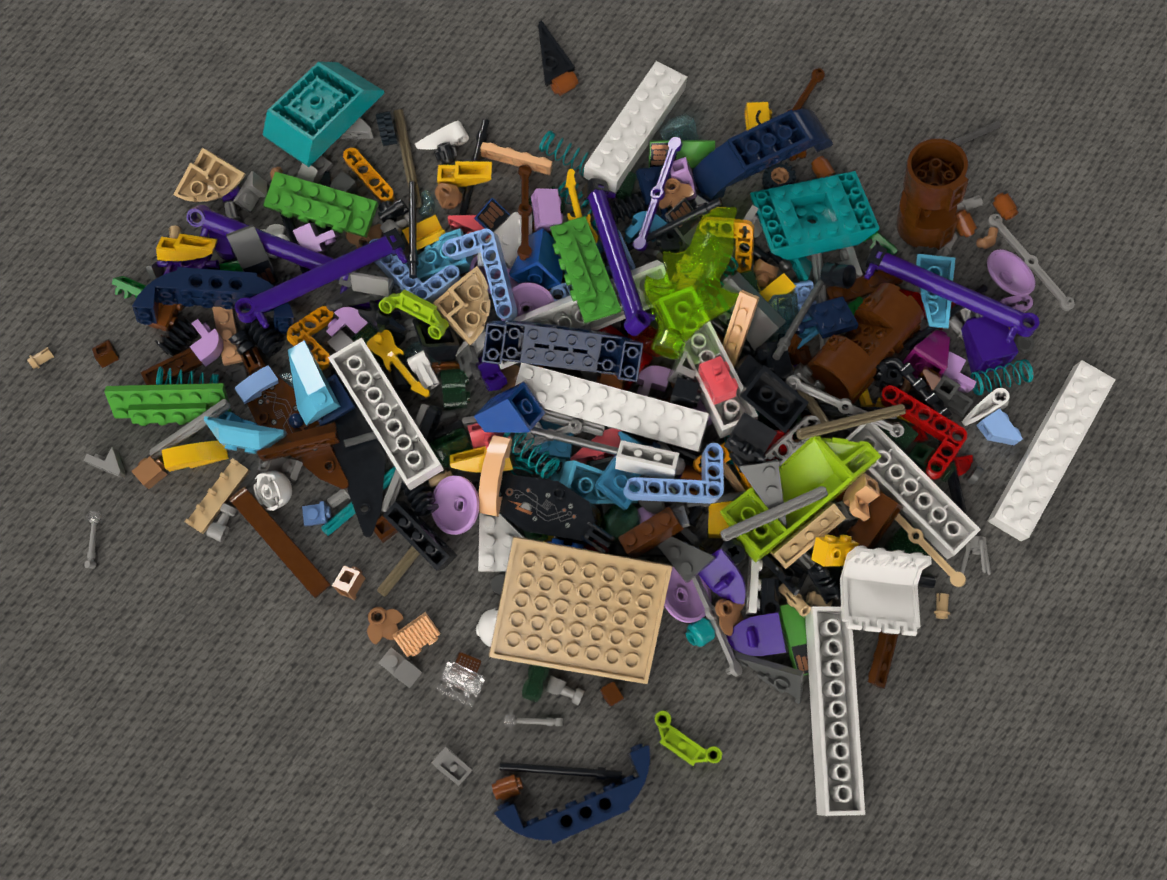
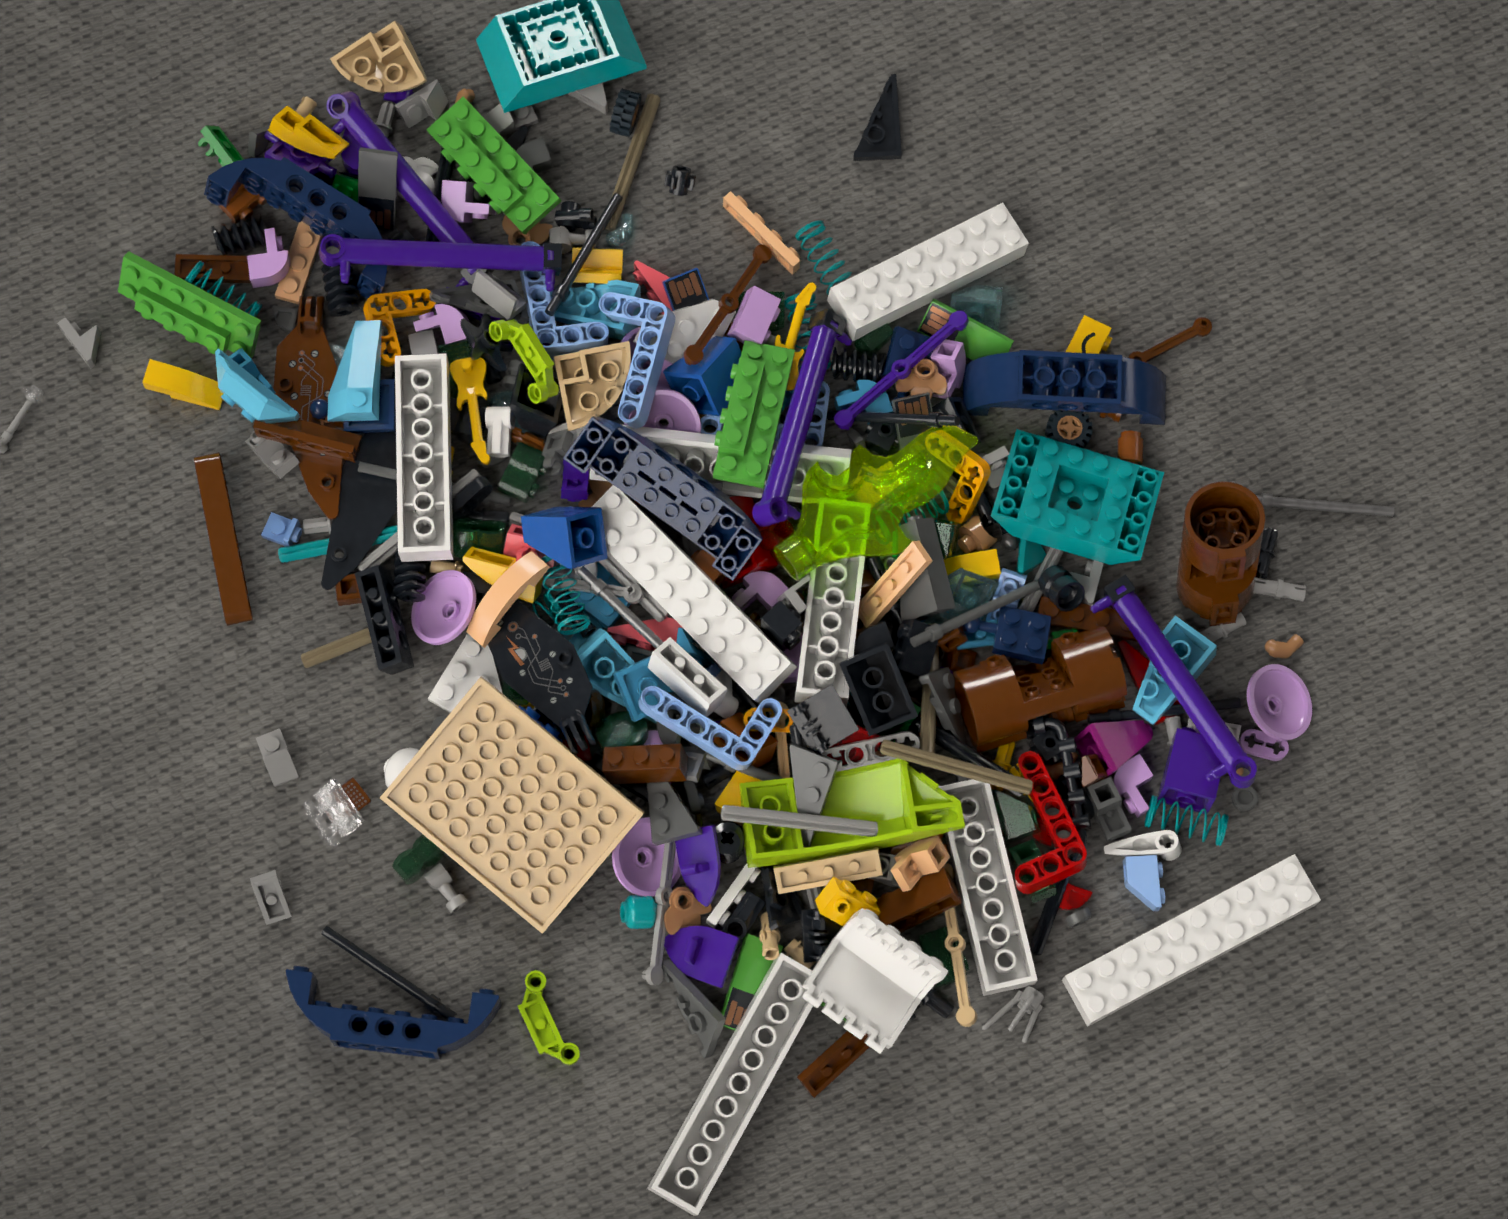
camera: 30 degrees right, 0 degrees up
(40, 358) = (72, 175): tan pin -> none
(105, 354) = (148, 209): reddish brown slope -> none
(149, 471) = (123, 376): medium nougat brick -> none
(189, 429) = (195, 352): light grey axle -> none
(217, 495) = (183, 447): tan hinge -> none
(219, 530) = (163, 487): light grey leg -> none
(239, 338) = (310, 275): black wheel -> none
(256, 383) = (298, 340): light blue slope -> none
(273, 489) = (249, 474): white cylinder -> none
(349, 582) = (274, 628): medium nougat brick -> none
(369, 175) = (573, 158): light orange beam -> none
(385, 627) = (287, 702): medium nougat plate -> none
(416, 635) = (315, 731): light nougat brick -> none
(450, 133) = (701, 160): white piece -> none
(450, 197) = (652, 235): medium nougat piece -> none
(465, 173) = (685, 218): yellow slope -> none
(481, 137) = (736, 182): black bar -> none
(507, 787) = (318, 957): dark orange brick -> none
(510, 720) = (366, 885): light grey piece -> none
(564, 83) = (876, 169): dark orange brick -> none
(611, 694) = (495, 922): reddish brown slope -> none
(718, 380) = (825, 630): coral brick -> none
(883, 242) = (1149, 584): green plate -> none
(896, 429) = (917, 685): light grey piece -> none
(942, 606) = (941, 1044): tan pin -> none
(965, 223) = (1263, 610): dark orange brick -> none
(1005, 206) = (1330, 618): dark orange brick -> none
(1066, 303) = (1331, 778): light grey piece -> none

